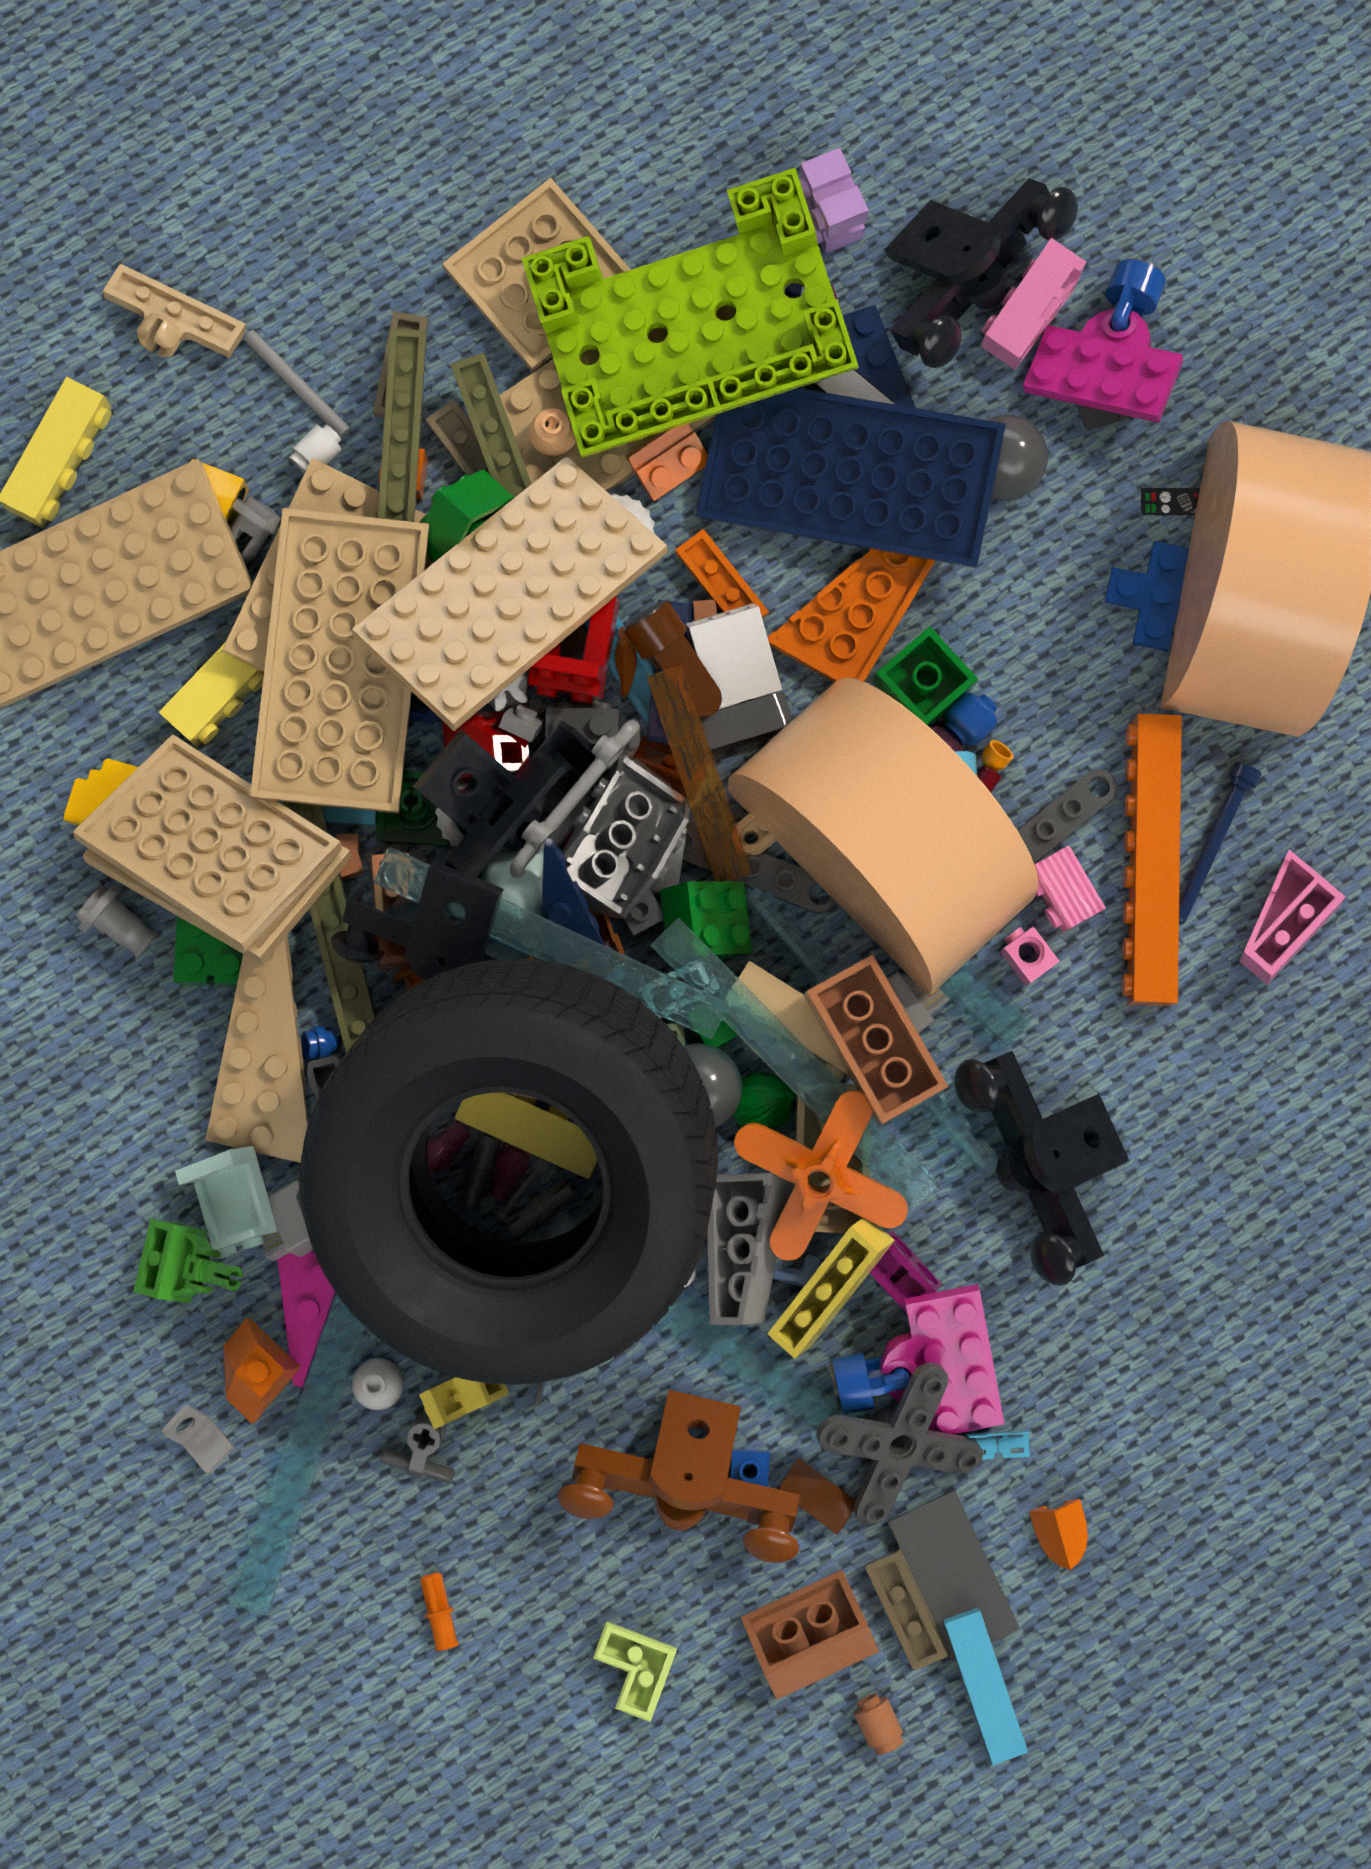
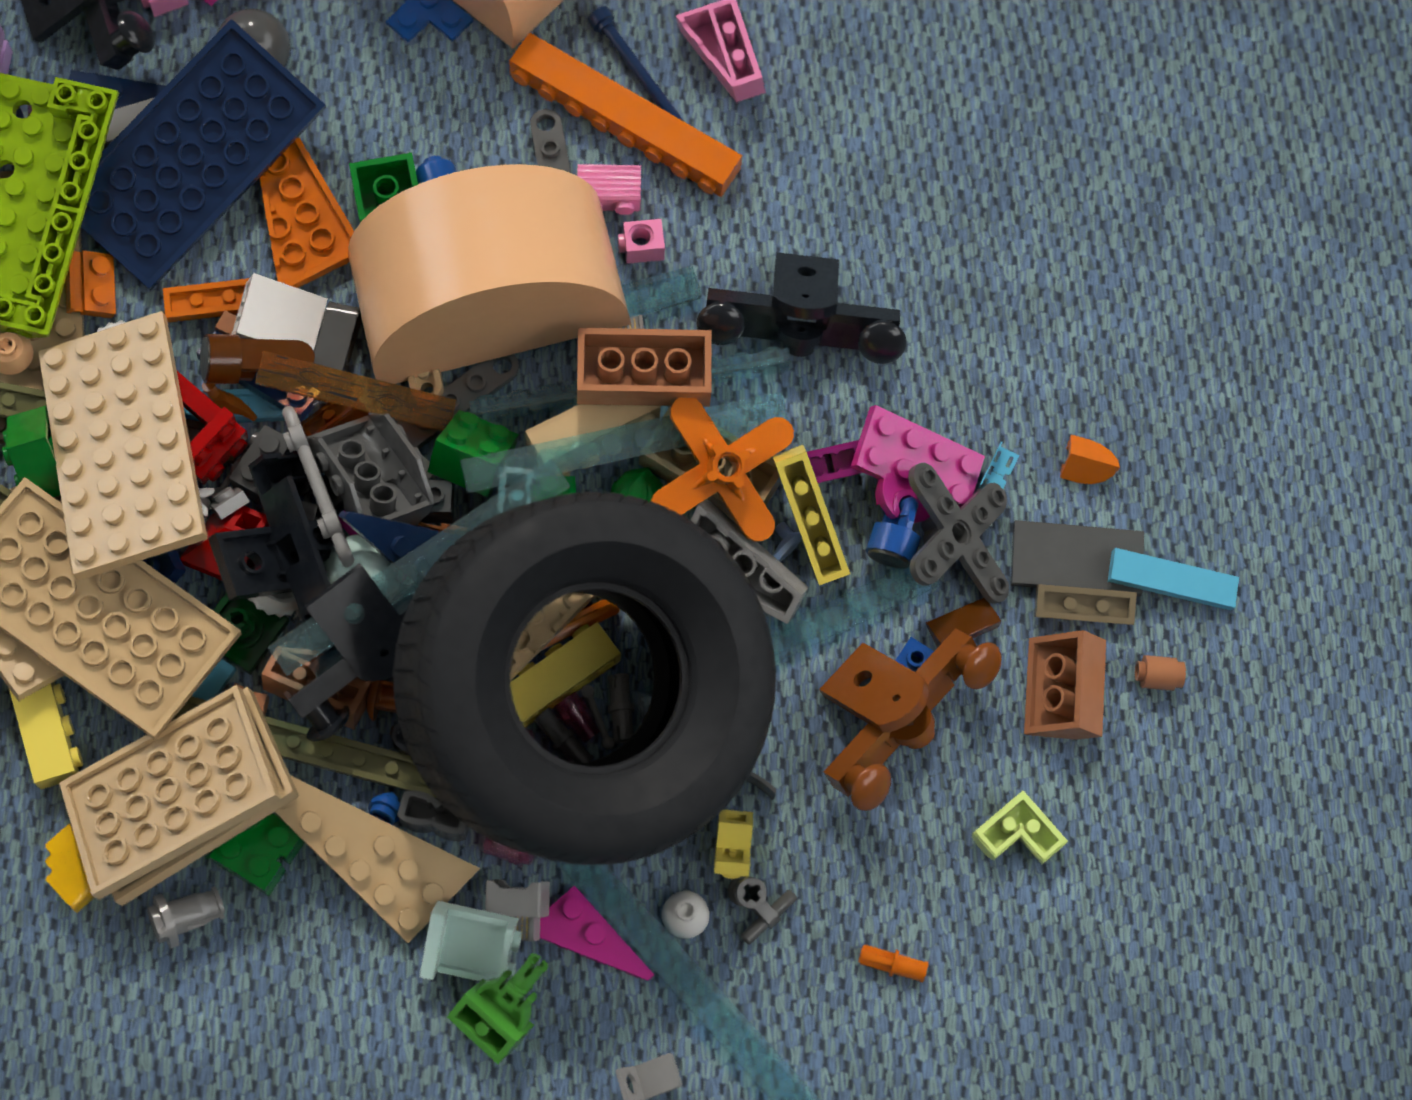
camera: 65 degrees left, 10 degrees down
(255, 1370) = (618, 1005): orange slope -> none

